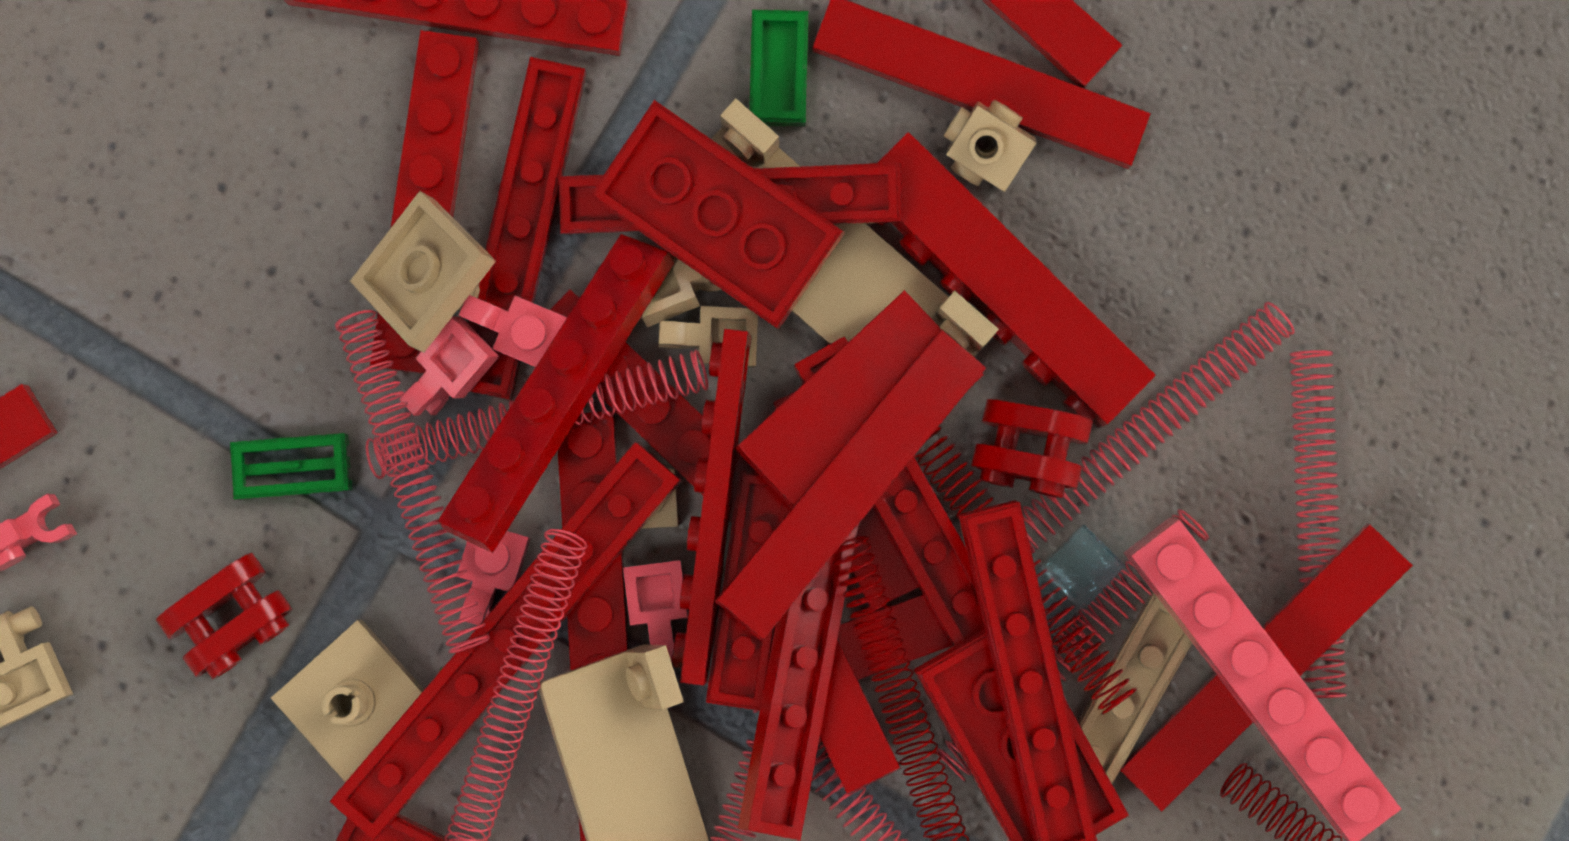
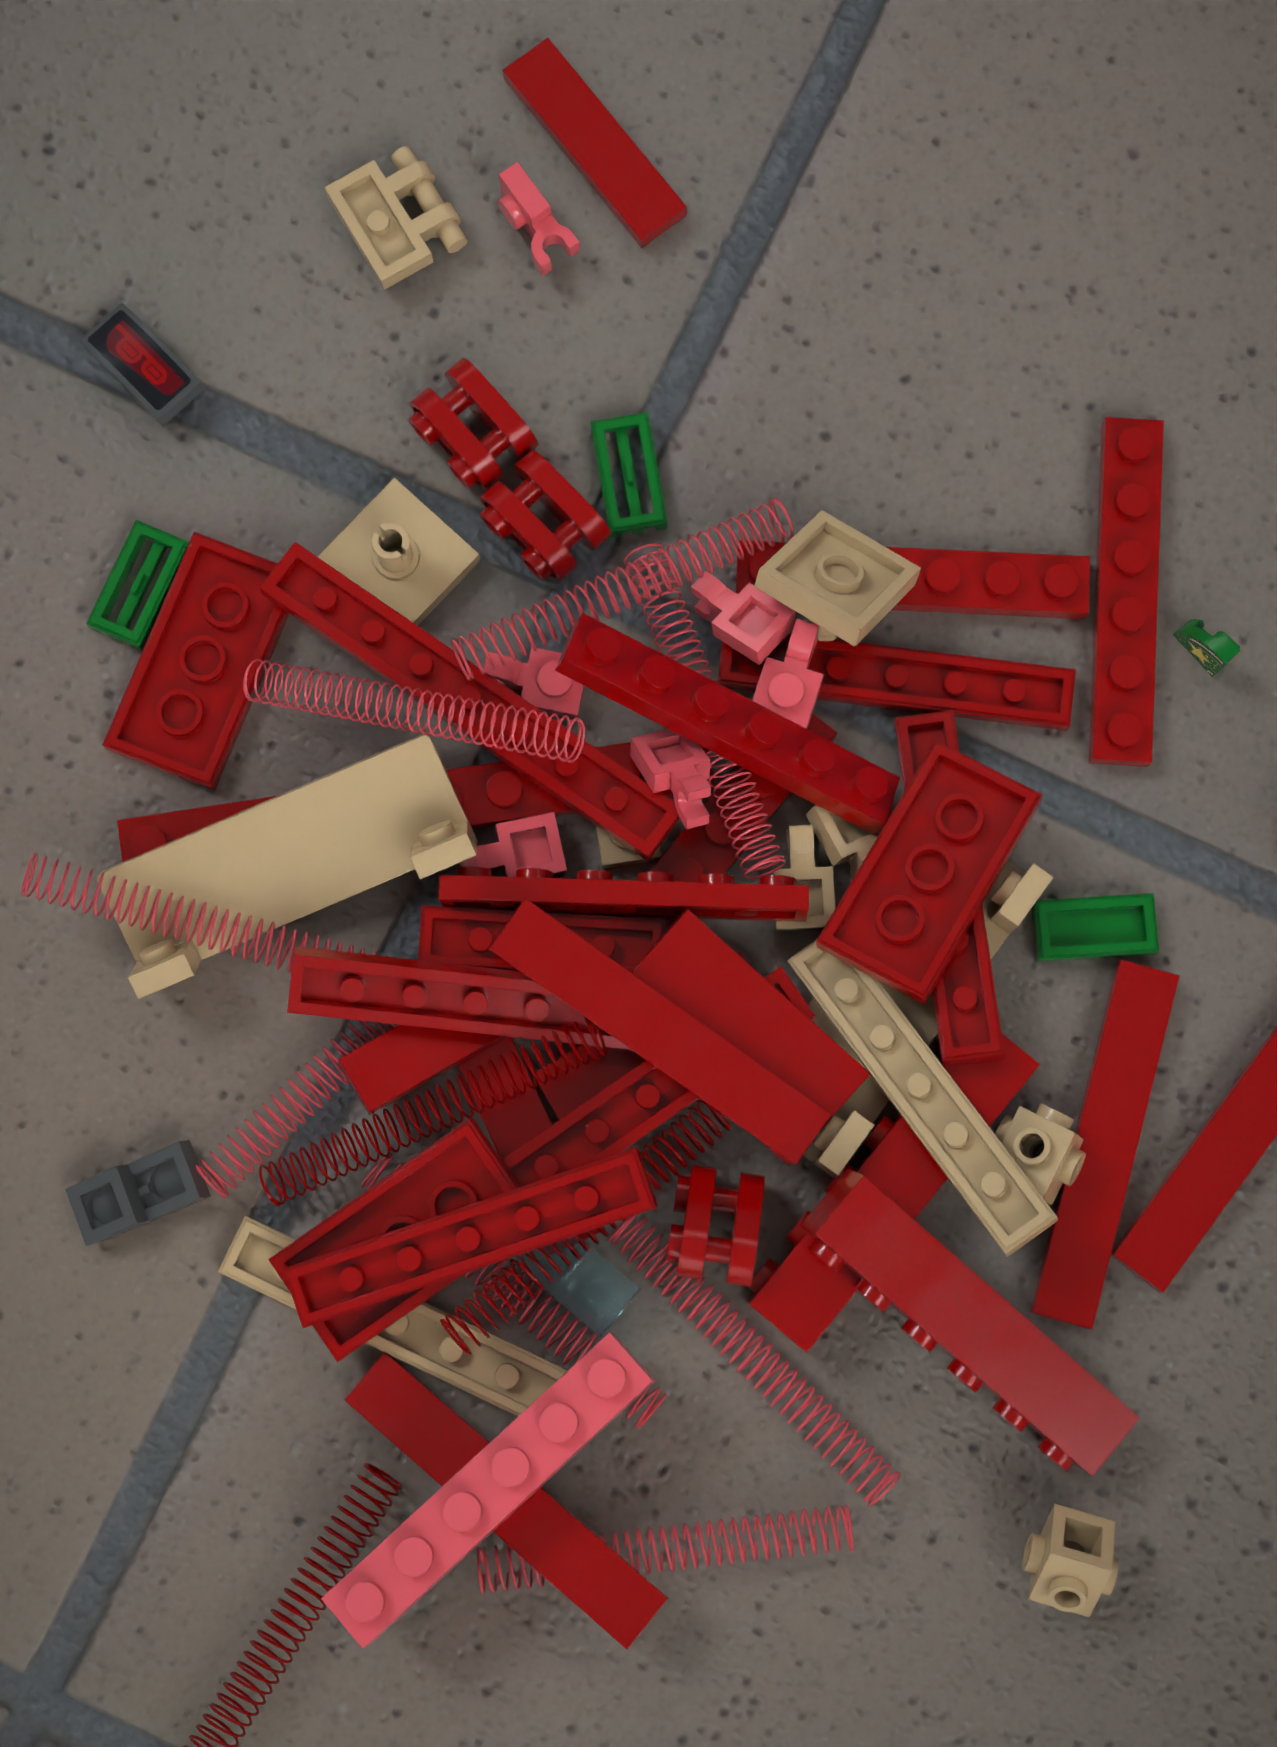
camera: 90 degrees right, 5 degrees down
(361, 554) = (544, 551): none -> red brick
(593, 443) = (678, 765): none -> coral plate
(931, 240) = (926, 1099): none -> tan tile
(1139, 225) = (969, 1322): none -> red brick
(1358, 155) = (1071, 1560): none -> tan brick

